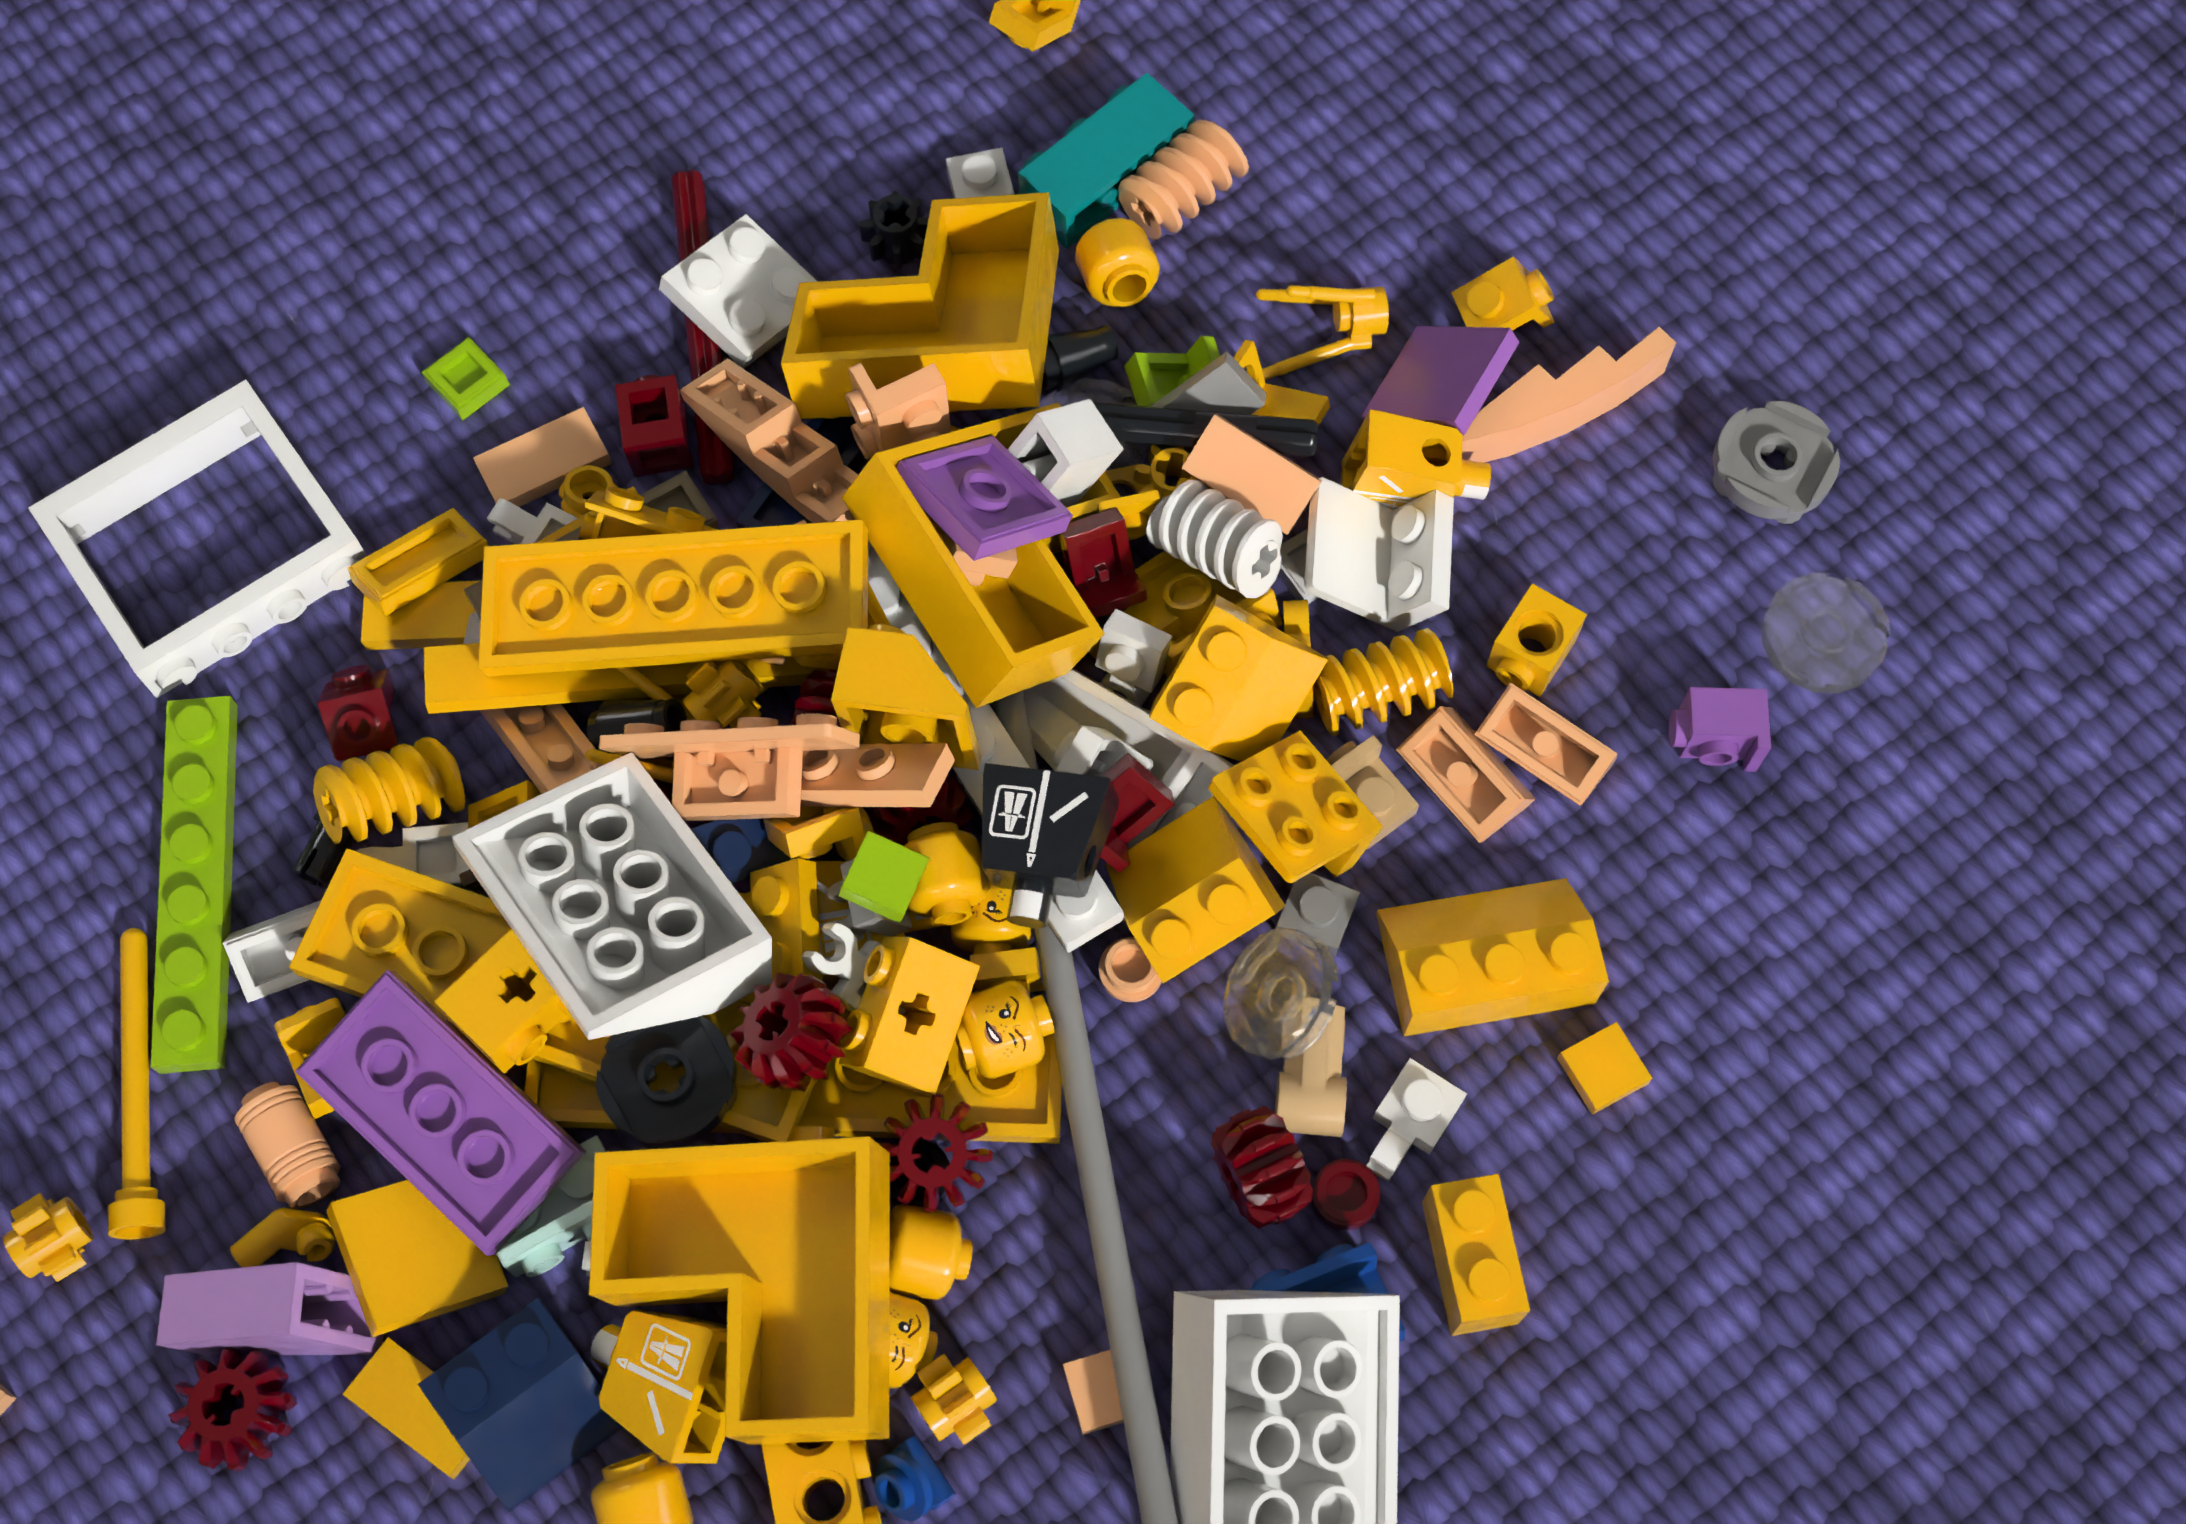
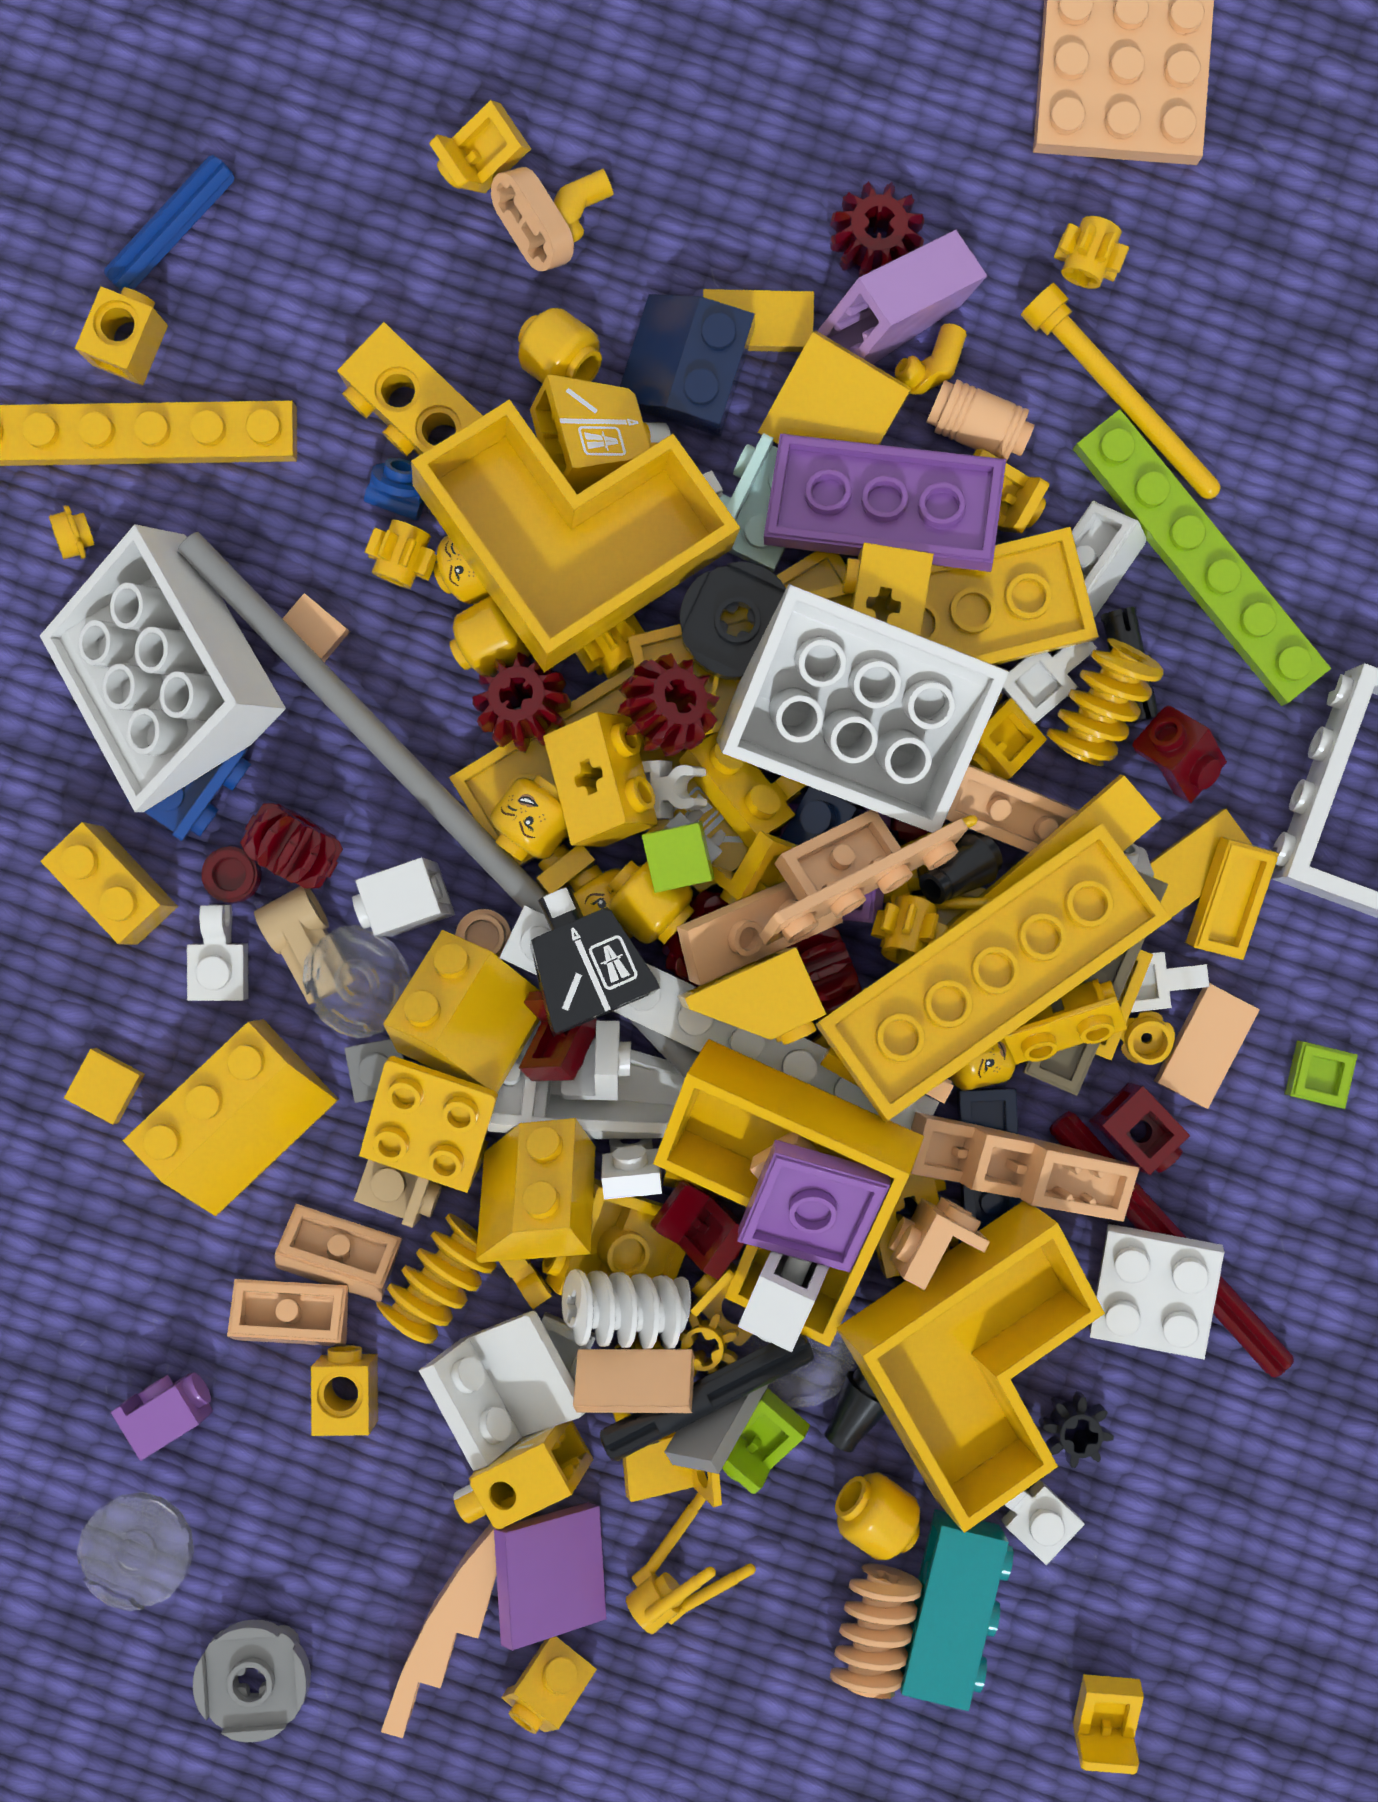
camera: 150 degrees right, 20 degrees up
(1181, 1036) = (402, 898): none -> white brick

